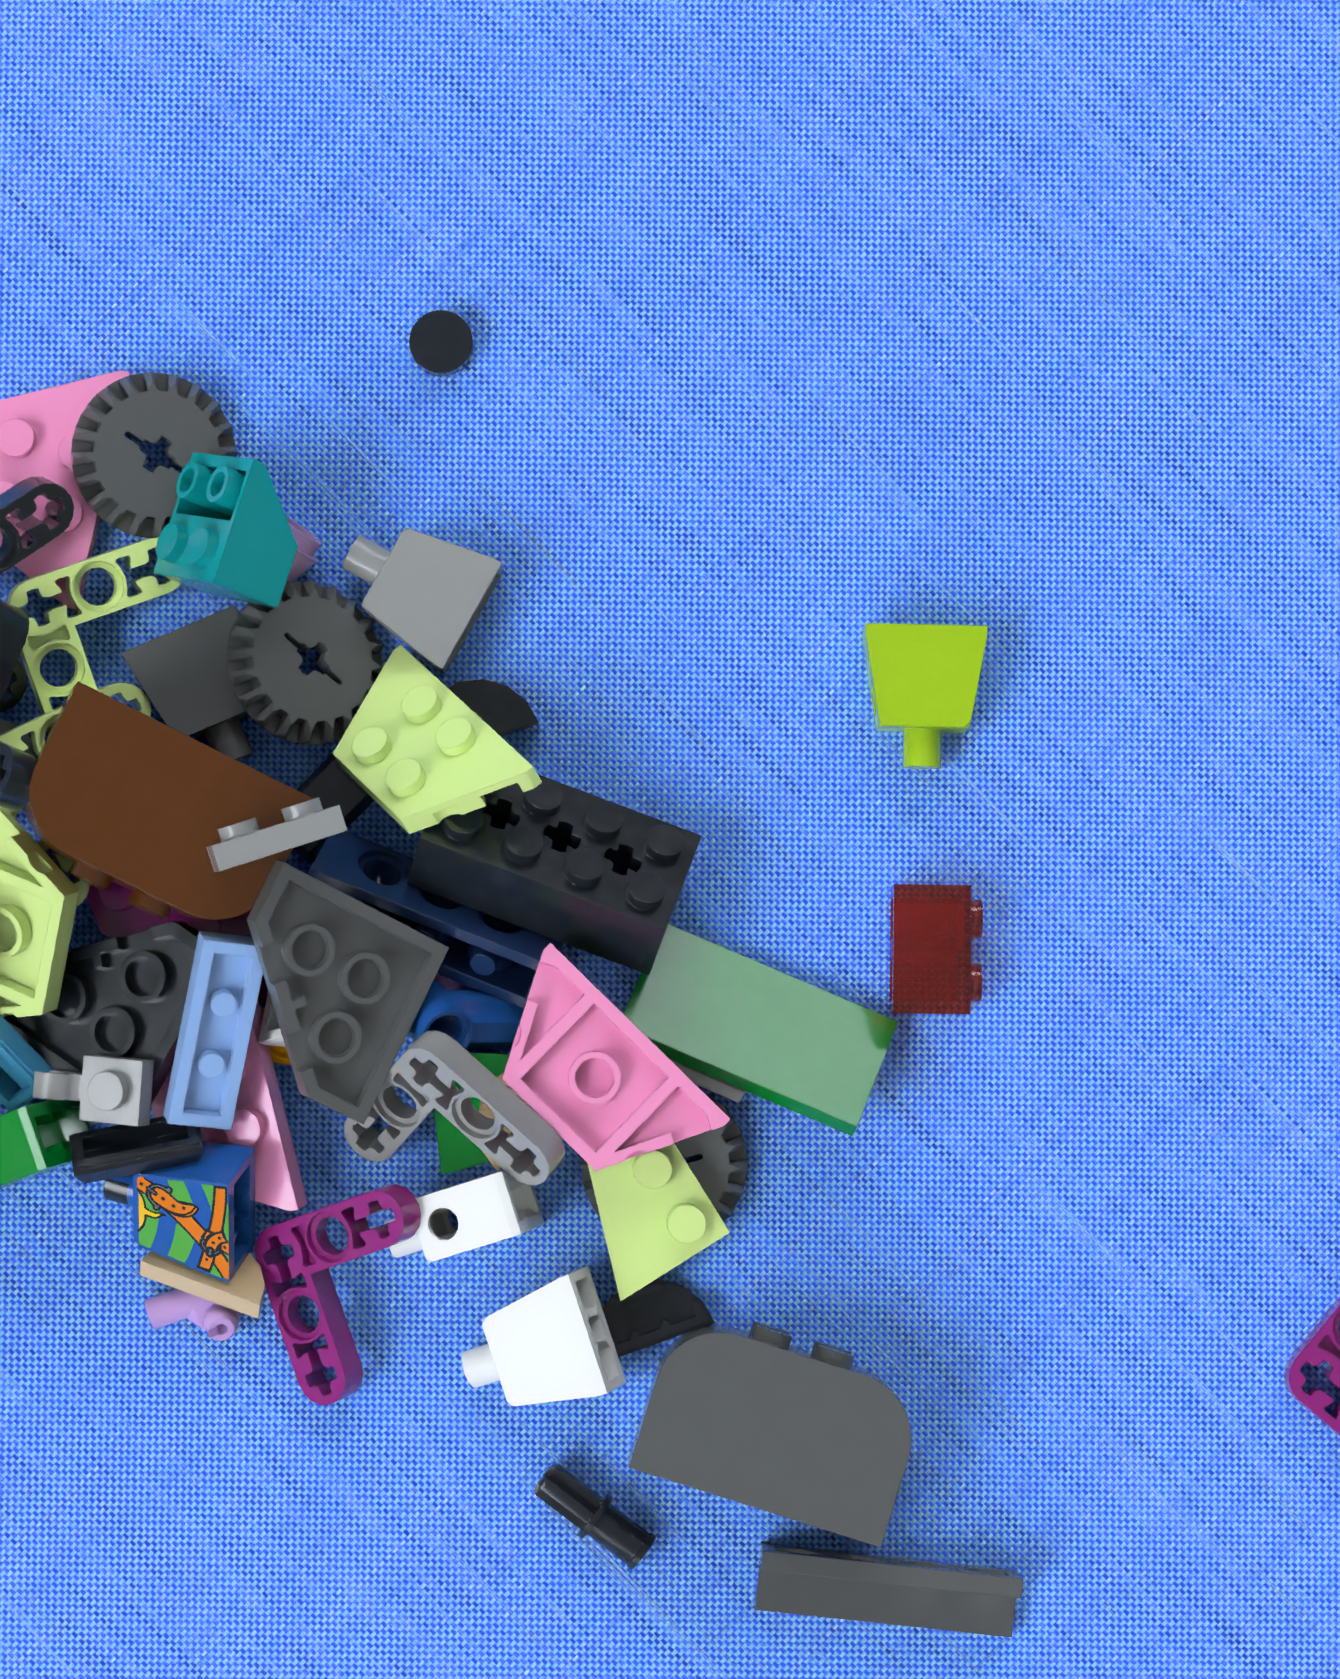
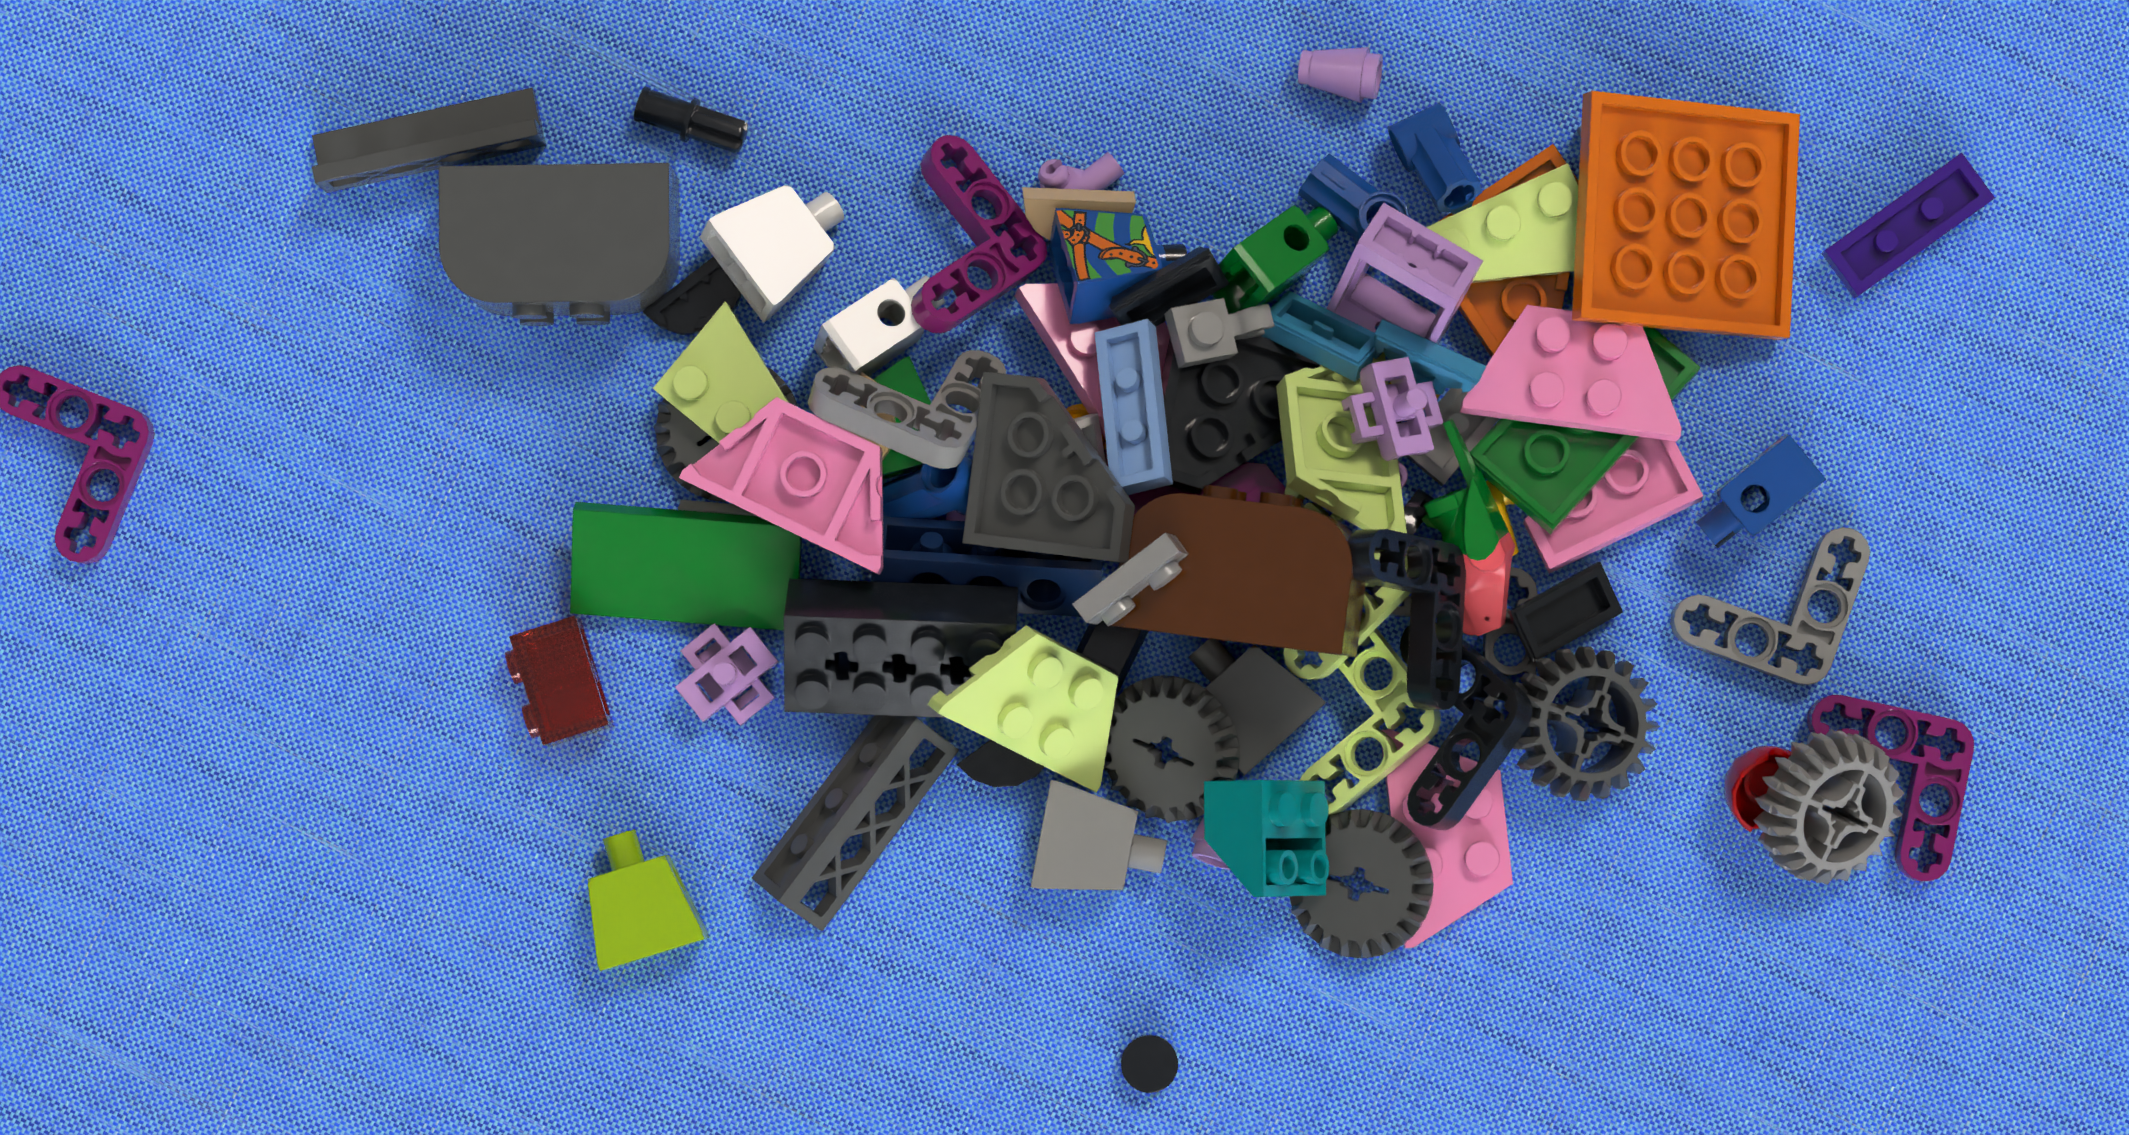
camera: 170 degrees right, 0 degrees up
(670, 713) = (847, 808): none -> dark grey fence
(751, 899) = (727, 674): none -> lavender piece

